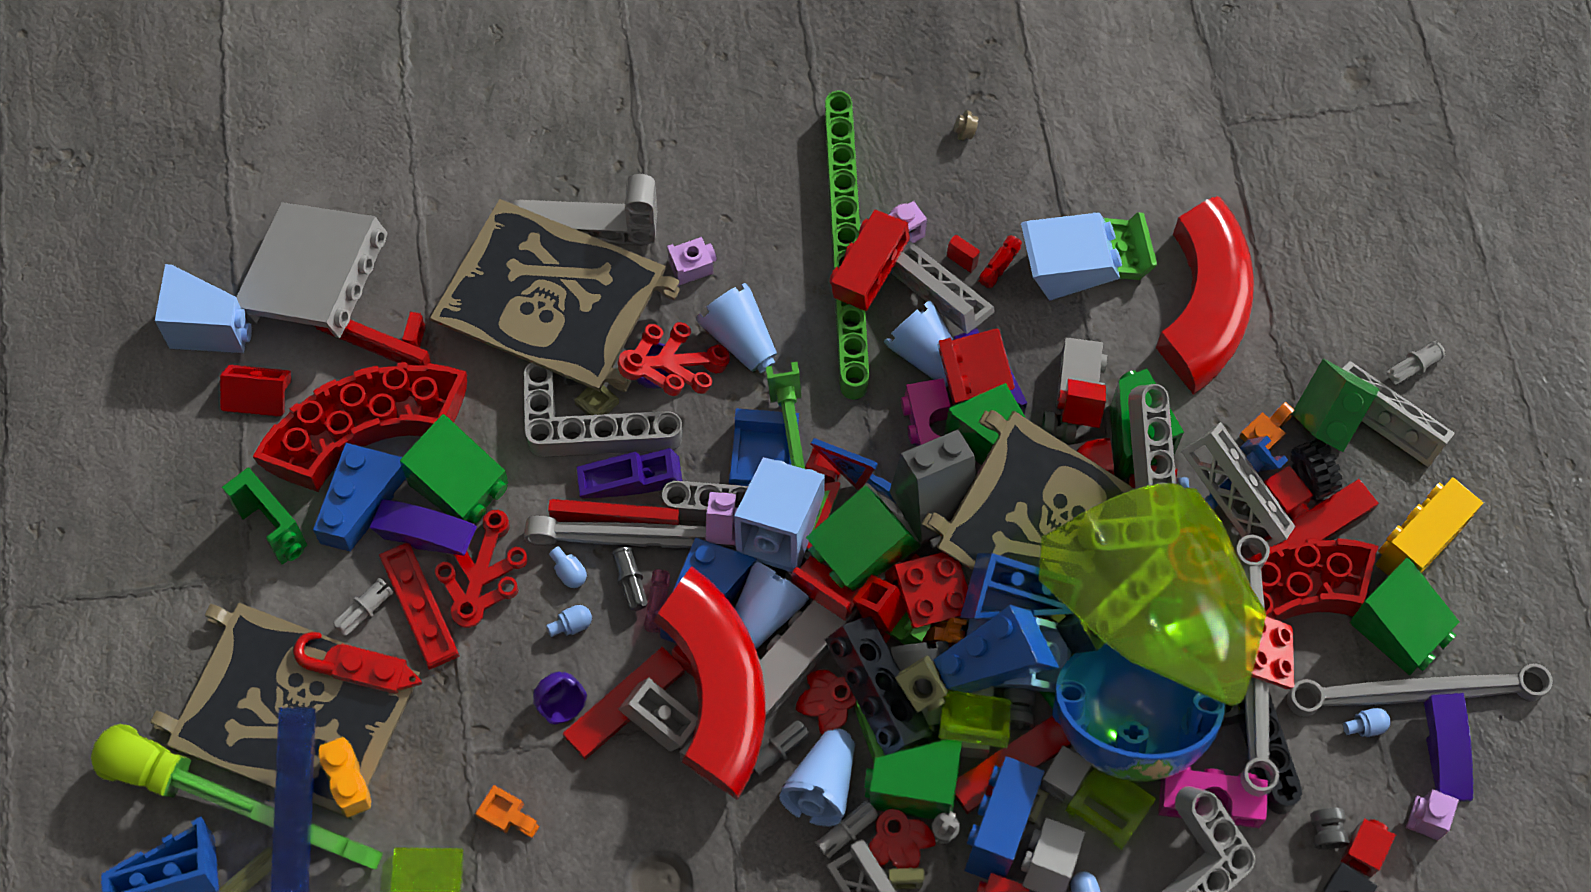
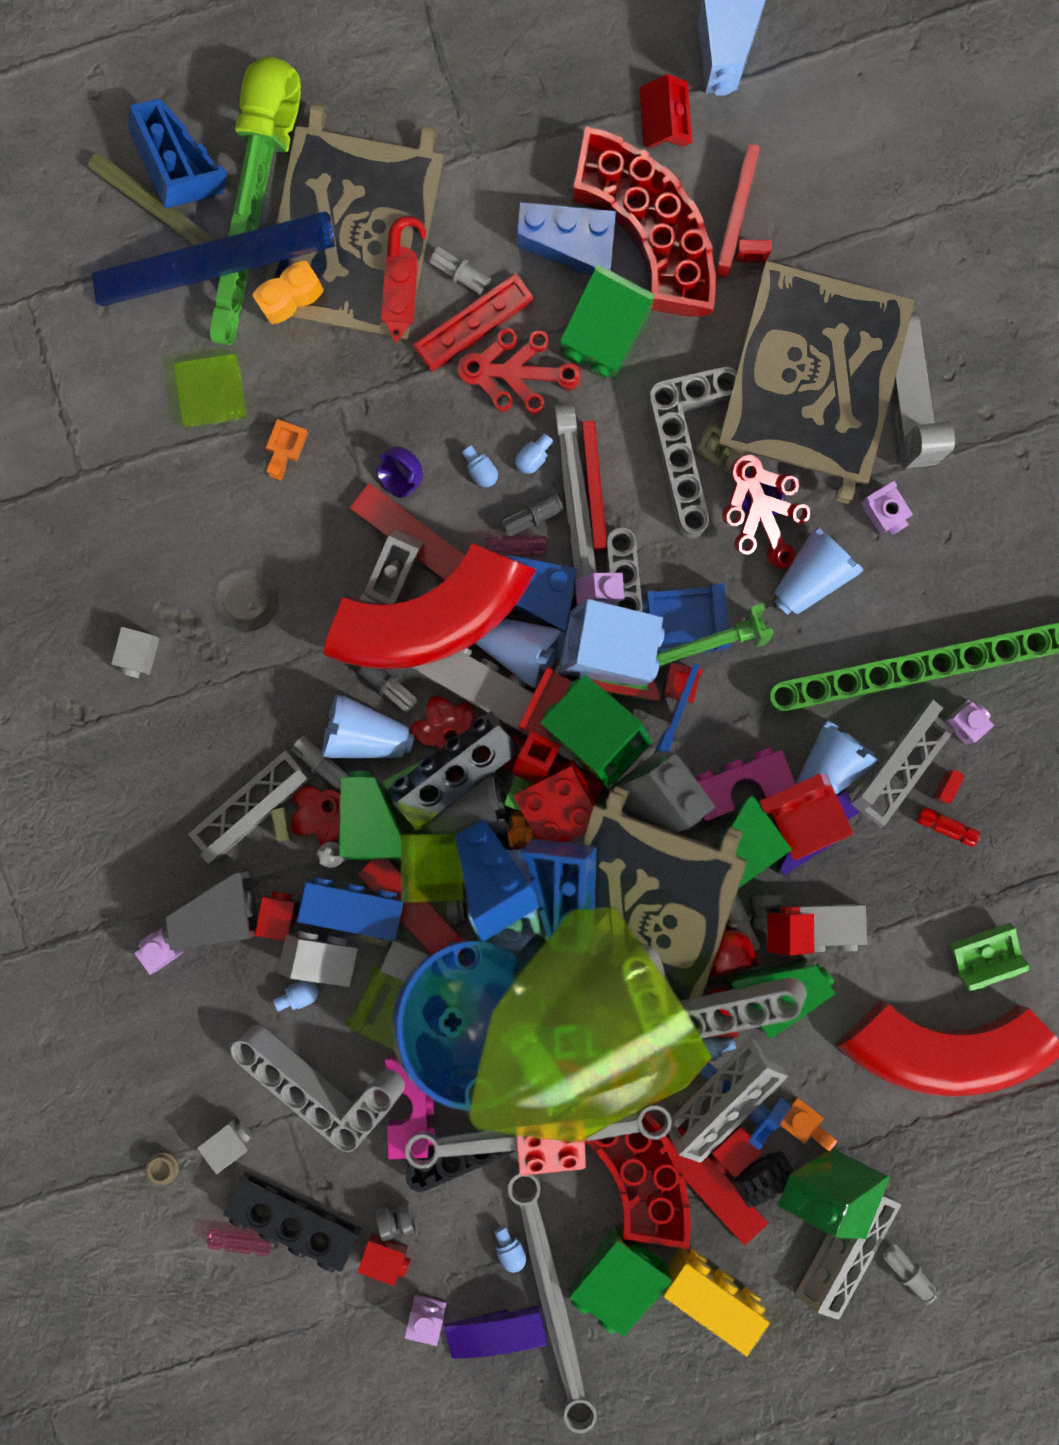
camera: 85 degrees right, 20 degrees up
(249, 494) = (547, 143): green panel -> none
(312, 266) = (800, 131): light grey panel -> none
(422, 528) = (544, 306): dark purple slope -> none
(629, 474) = (640, 494): dark purple slope -> none
(869, 259) = (912, 689): red brick -> none
(923, 669) = (467, 810): olive brick -> none
(1071, 253) = (963, 898): light blue slope -> none

